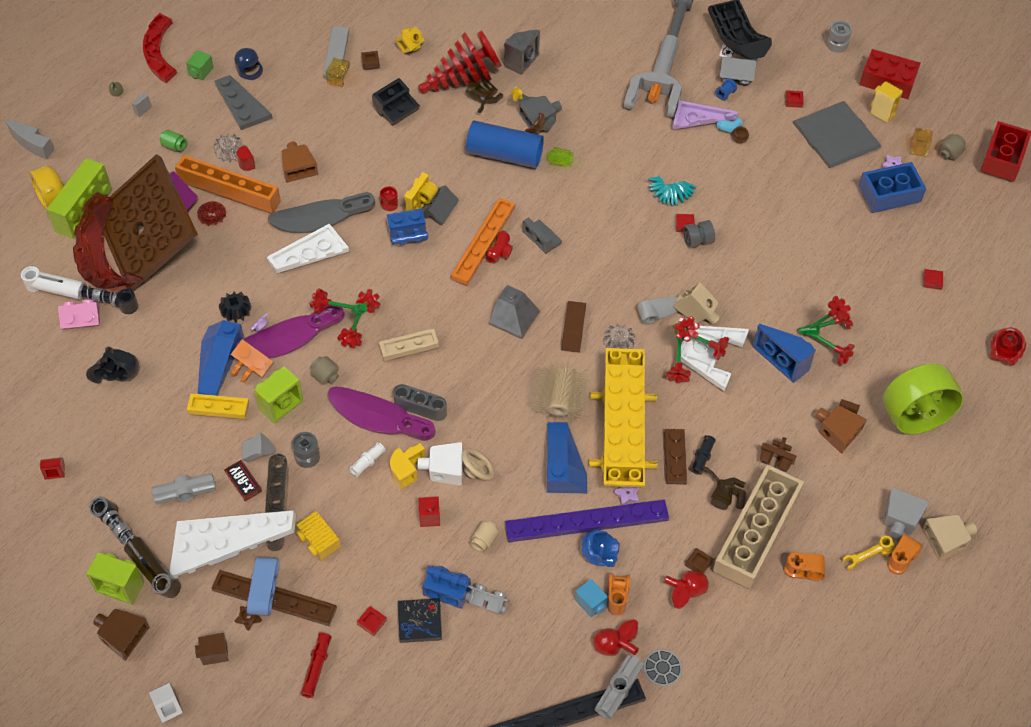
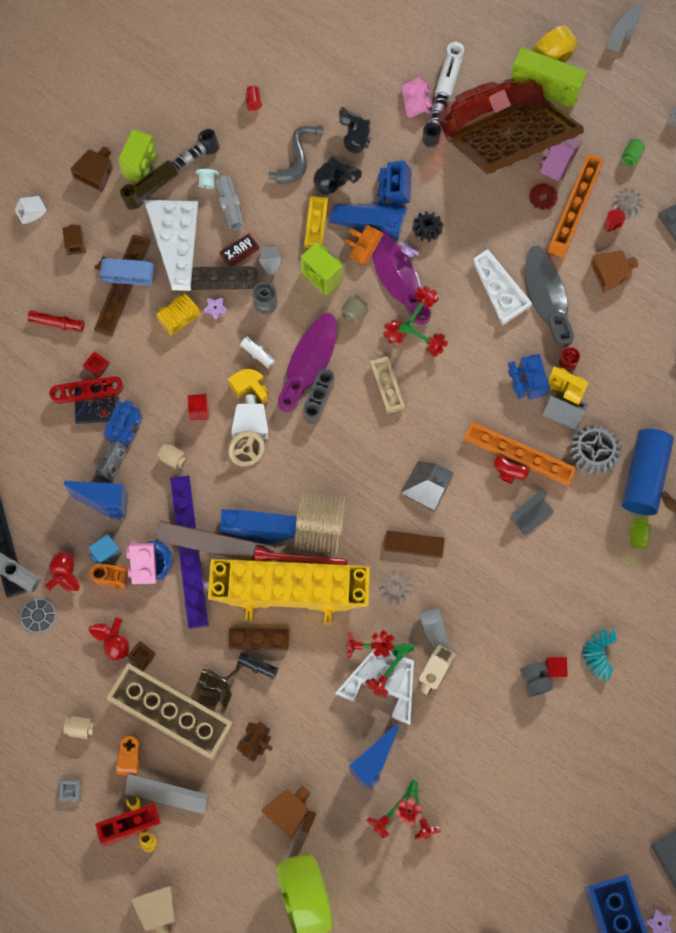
camera: 90 degrees right, 15 degrees up
(98, 240) = (499, 100): none -> tile
(151, 511) = (206, 178): none -> light aqua piece
(153, 424) = (293, 174): none -> dark grey animal
(165, 387) = (334, 175): none -> black head
(182, 327) = (398, 183): none -> blue brick
(310, 506) = (215, 312): none -> lavender plate
(403, 624) = (86, 390): none -> red beam
(480, 184) = (611, 450): none -> light grey gear
(537, 594) = (105, 498): none -> blue slope
(582, 490) = (209, 541): none -> tile
(596, 443) = (263, 555): none -> red piece
(606, 555) = (142, 563): none -> bright pink bracket
(781, 614) = (79, 727): none -> tan brick
(837, 531) = (166, 794): none -> light grey tile
(844, 623) = (70, 791): none -> light grey tile
(875, 558) = (127, 825): none -> red slope
(903, 512) = (183, 865): light grey torso -> none
(904, 554) = (141, 863): orange piece -> none

